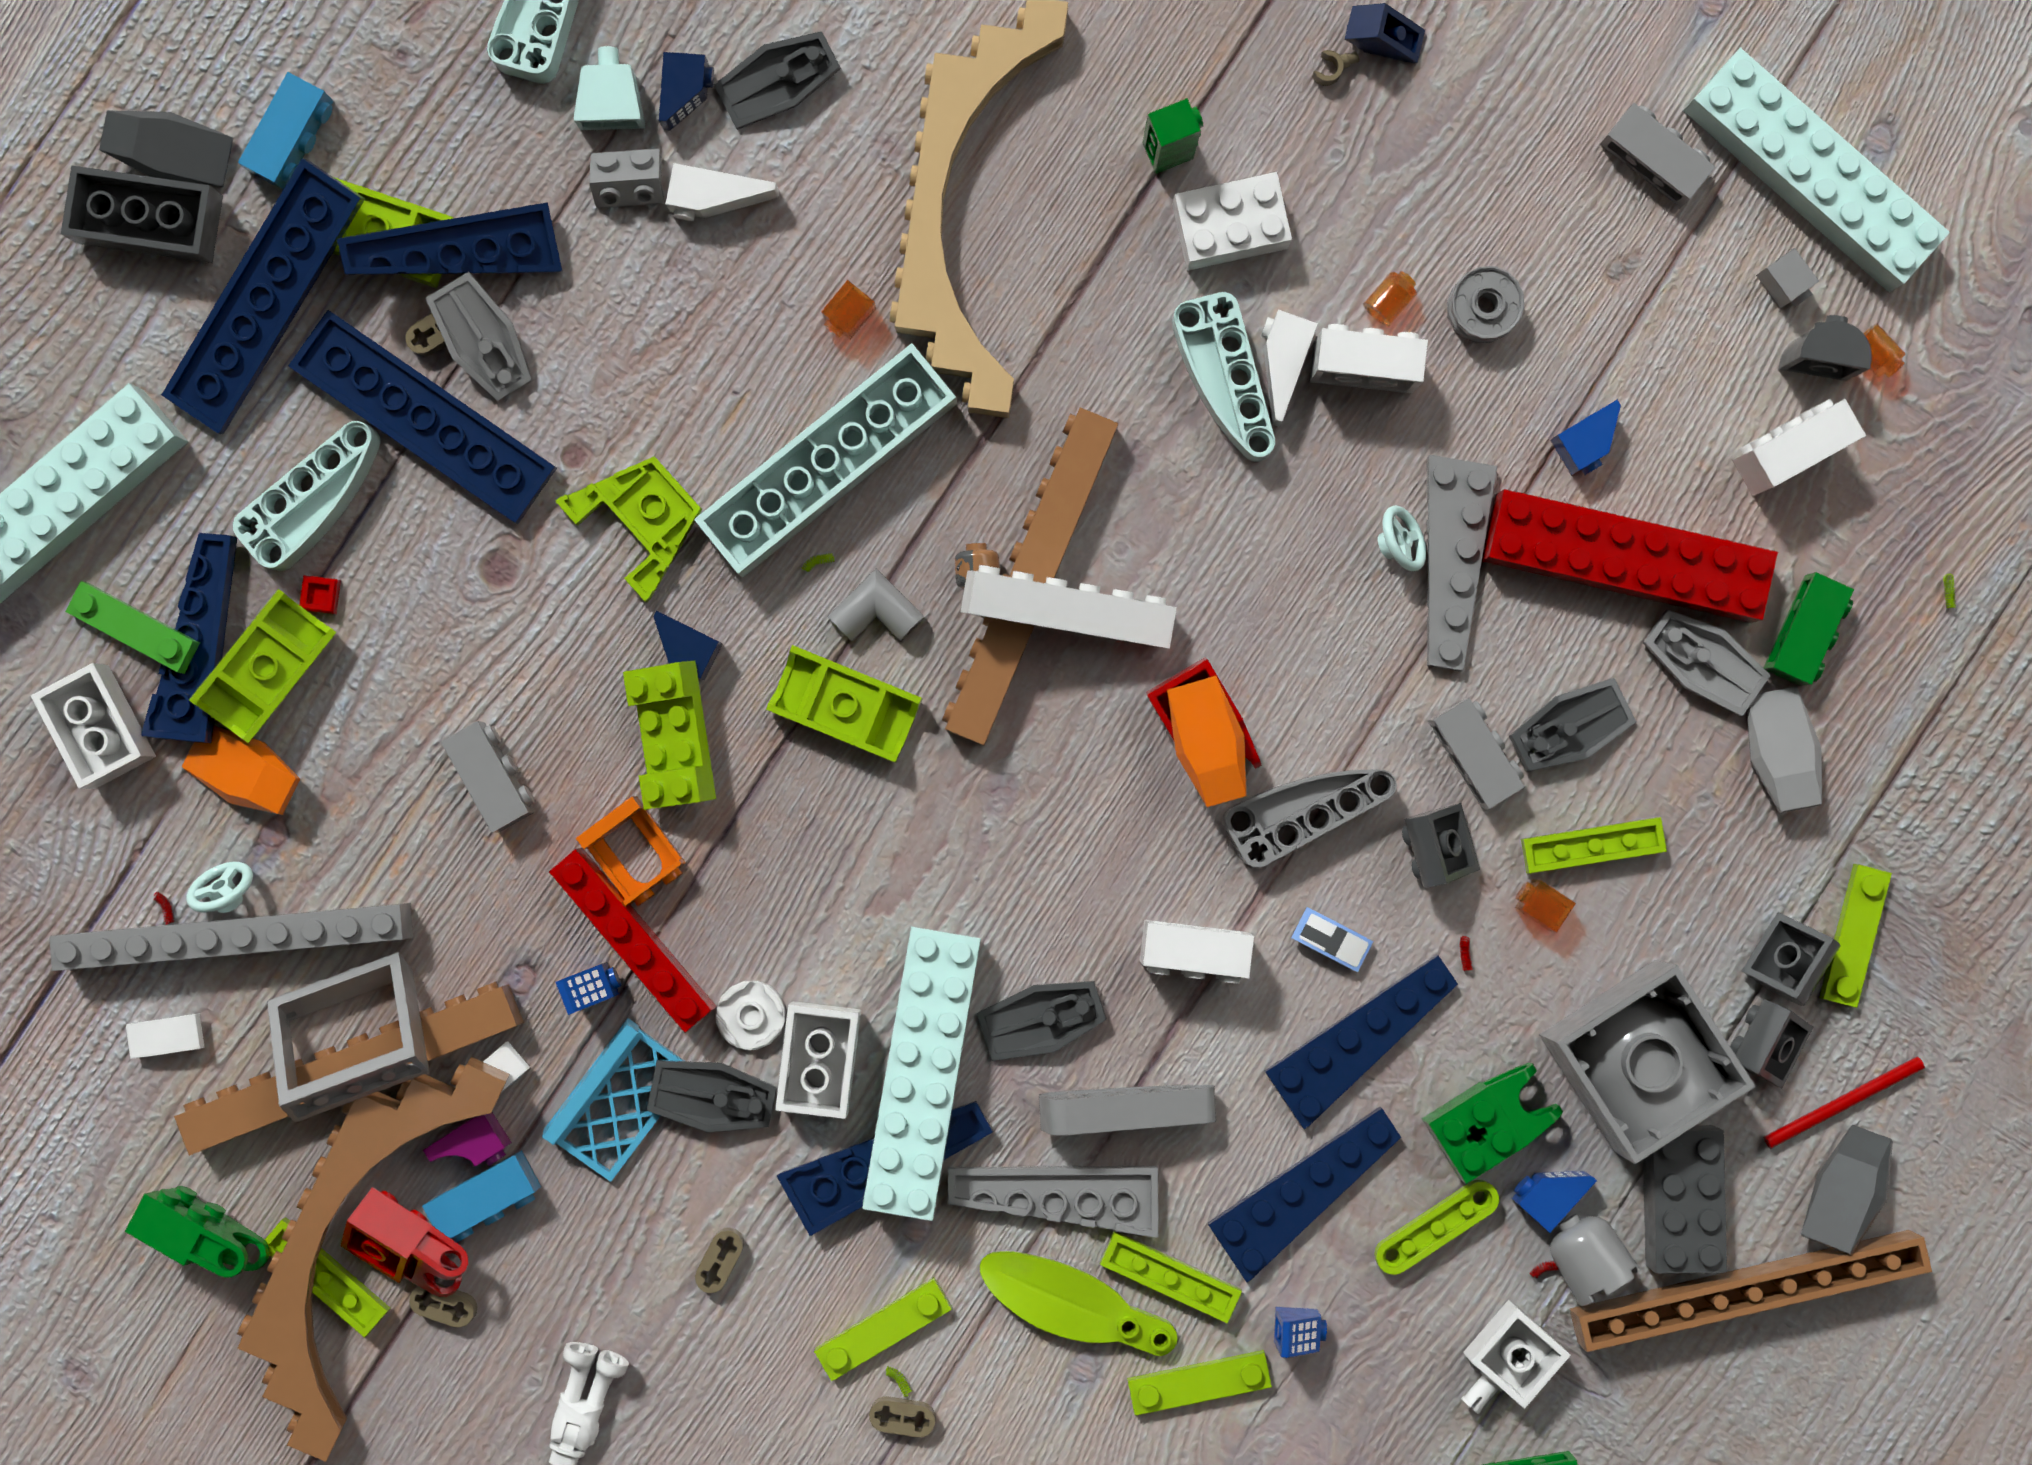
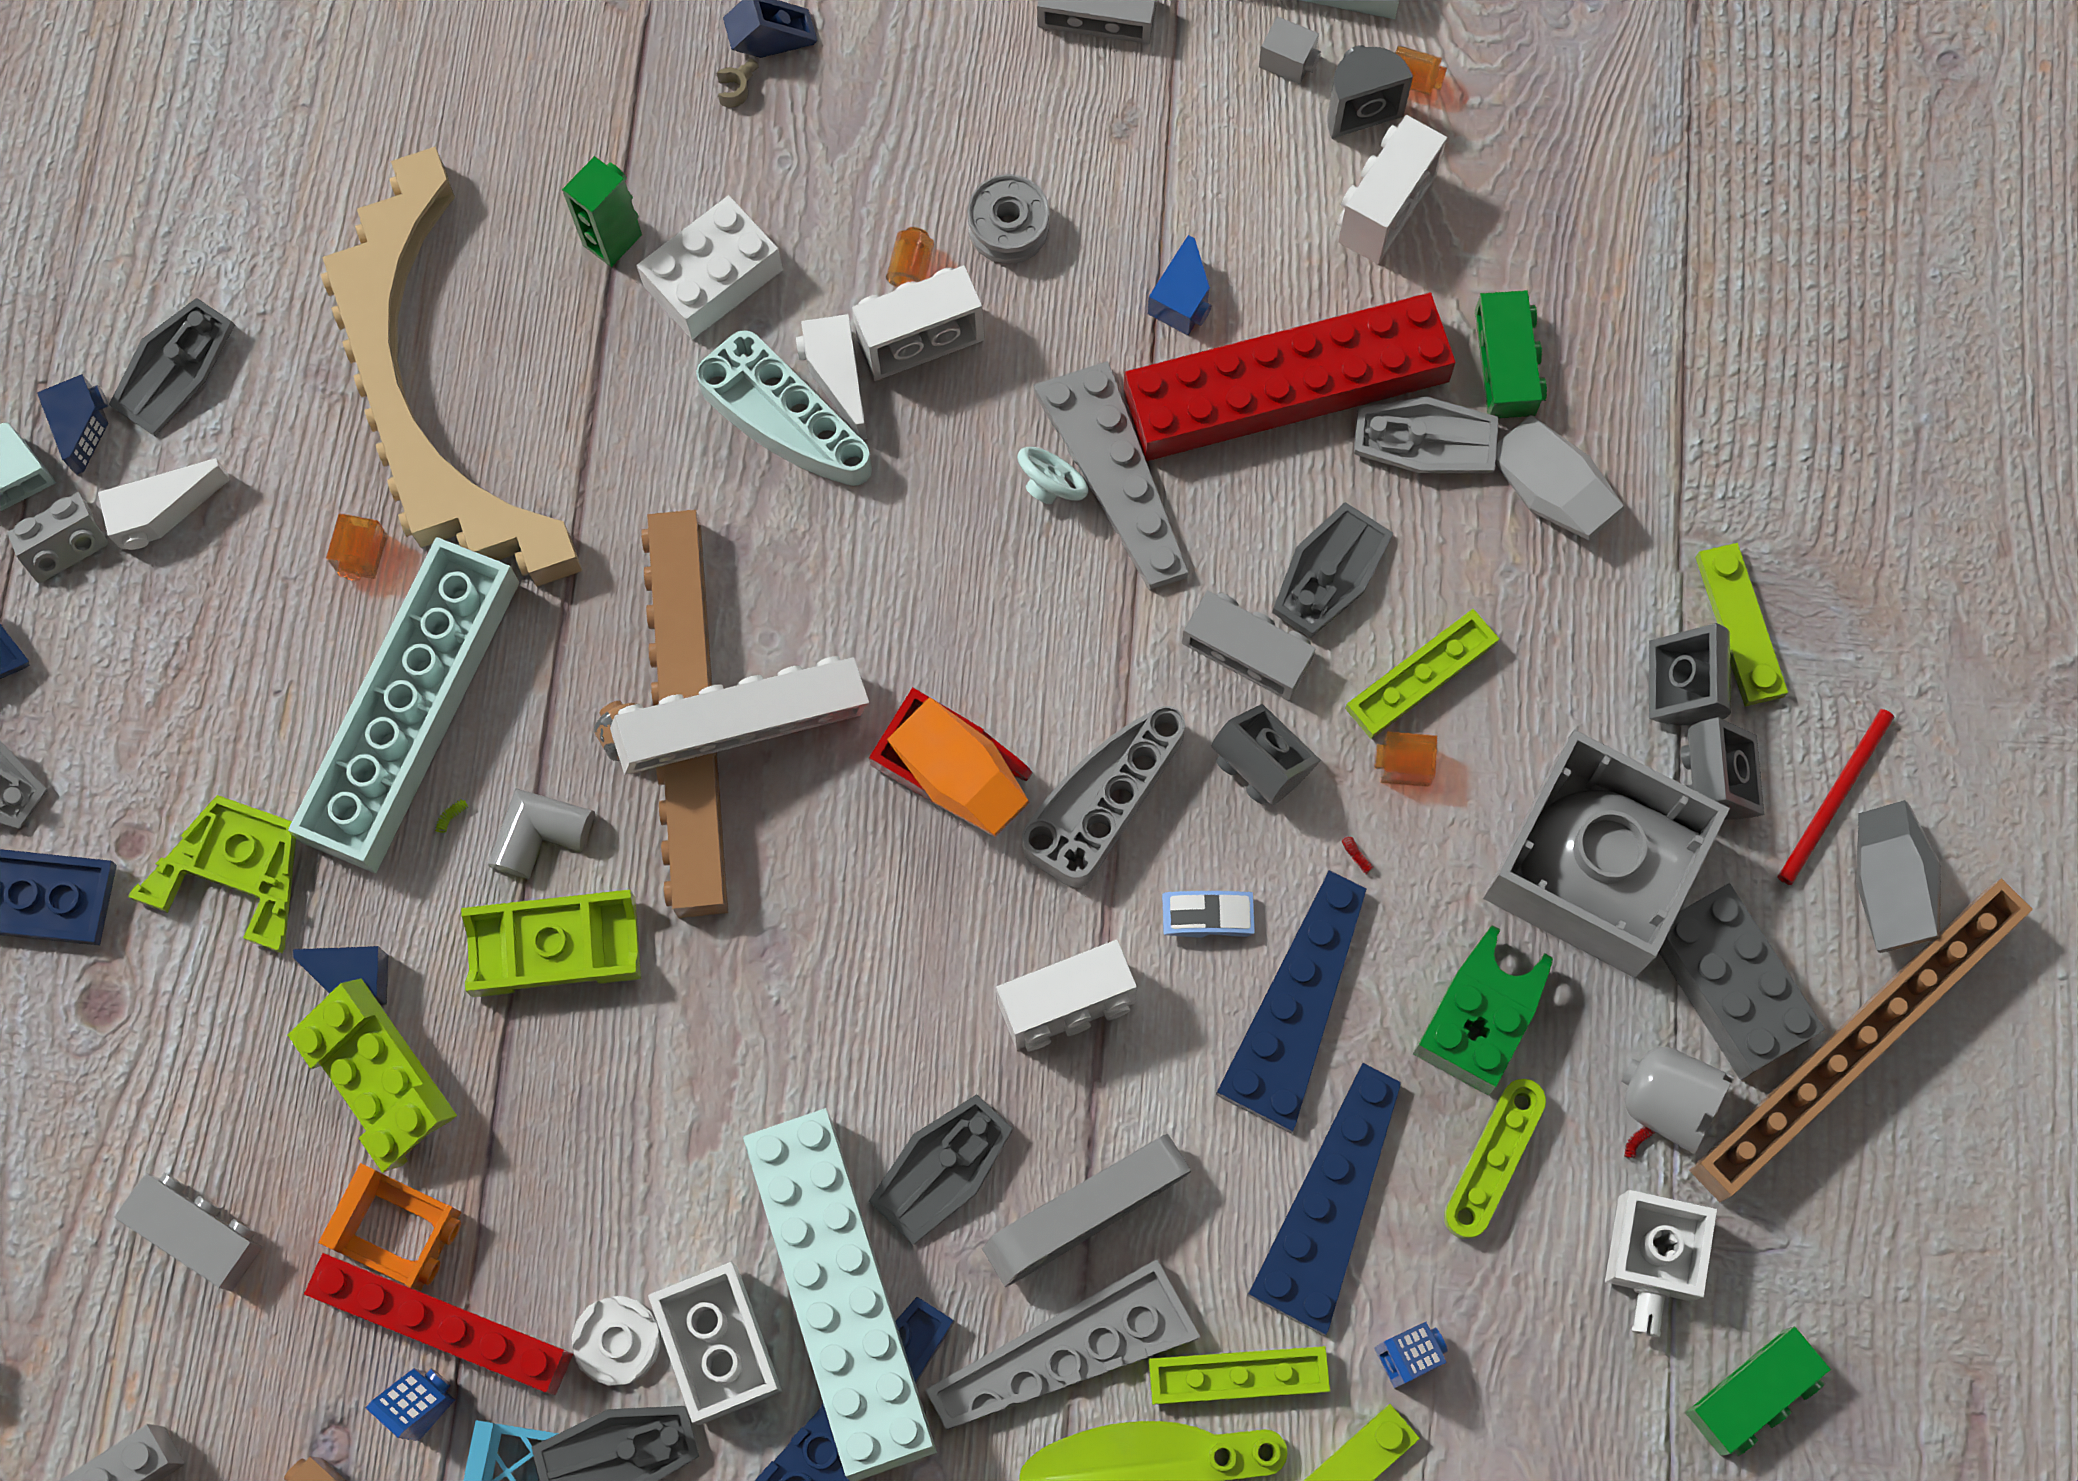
camera: 30 degrees left, 15 degrees down
(1552, 1195) = (1595, 1057): blue slope -> none
(1949, 586) = (1619, 246): lime leg -> none

